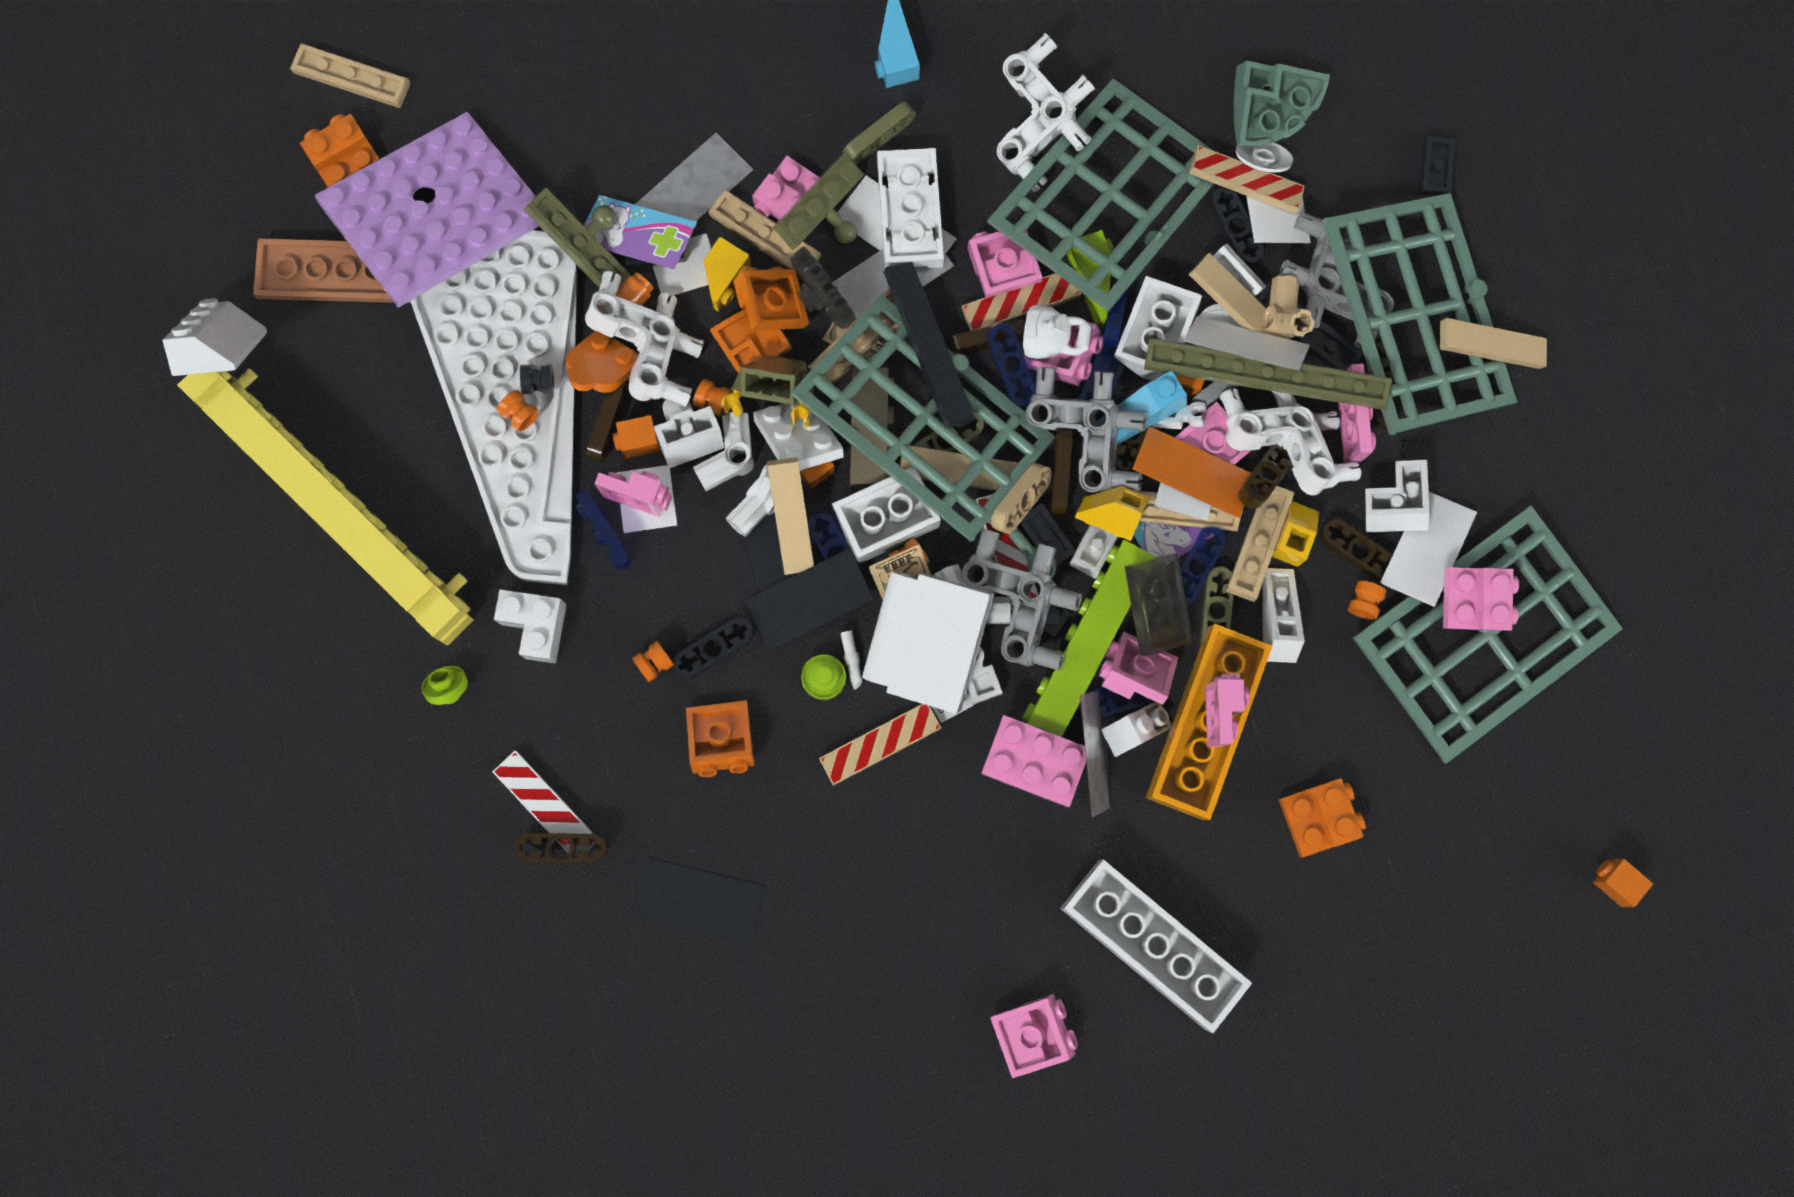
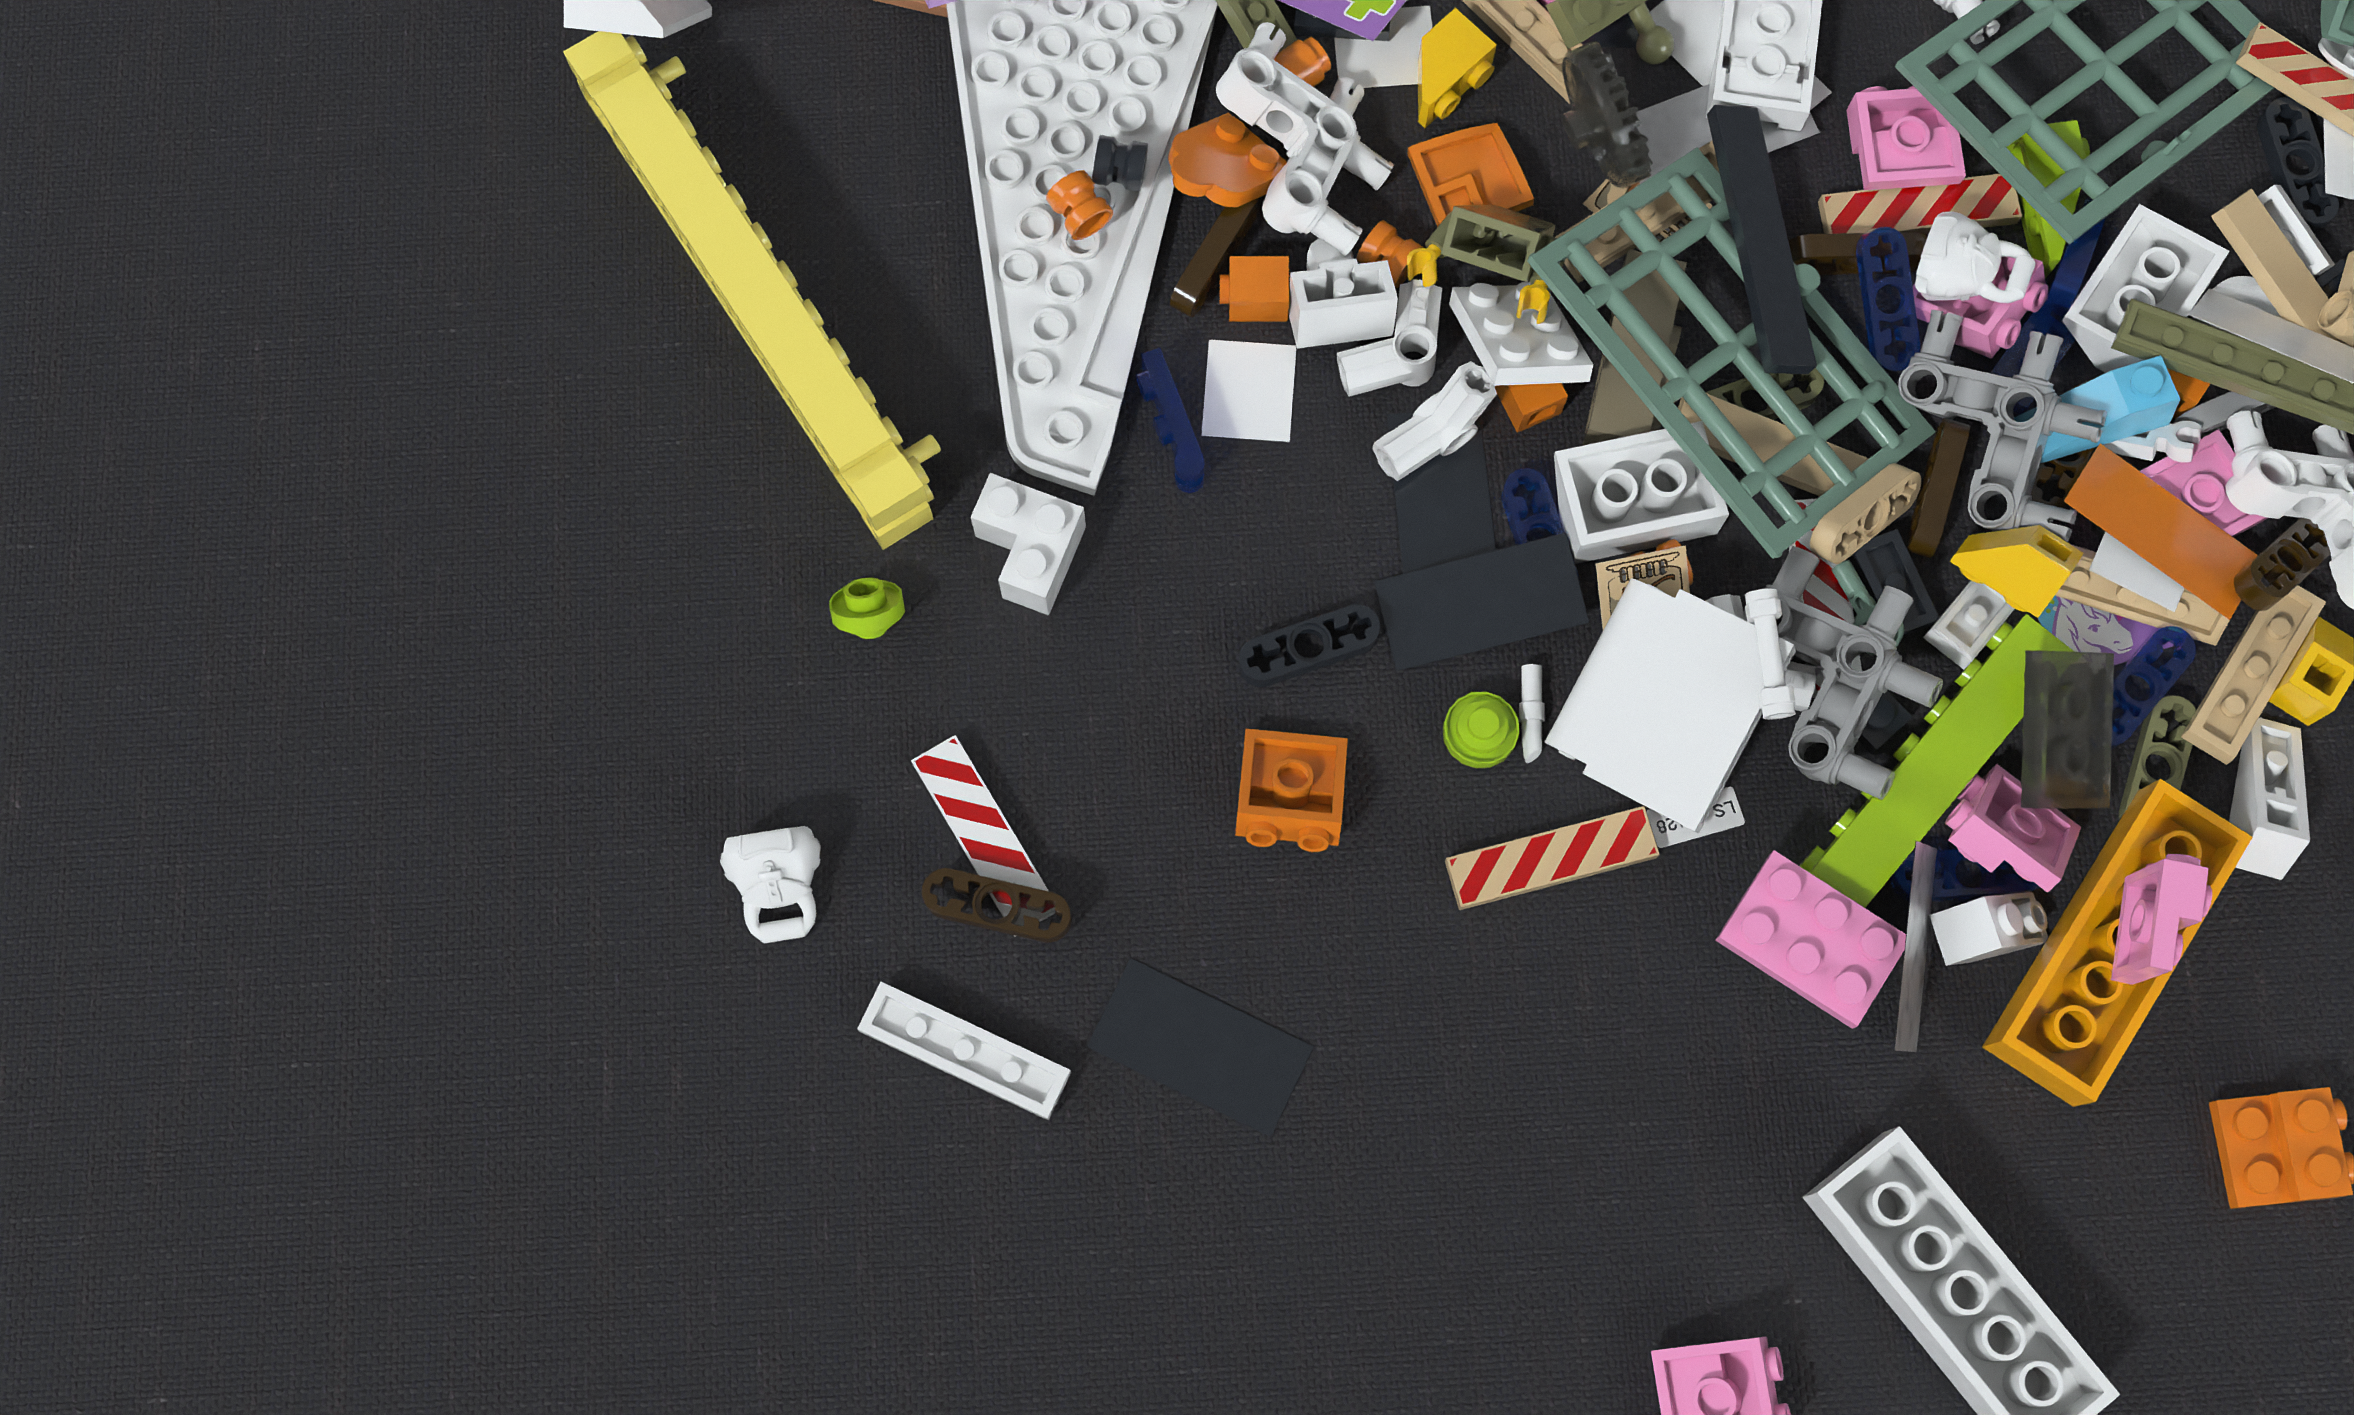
camera: 20 degrees right, 5 degrees down
(425, 858) = (774, 872): none -> white piece
(561, 937) = (964, 1050): none -> white plate
(641, 491) = (1245, 374): bright pink plate -> none
(659, 658) = (1218, 638): orange wheel -> none
(771, 298) = (1518, 117): orange plate -> none
(790, 515) = (1484, 454): tan tile -> none
(968, 577) = (1763, 610): none -> white bar
(983, 681) = (1745, 795): white plate -> none

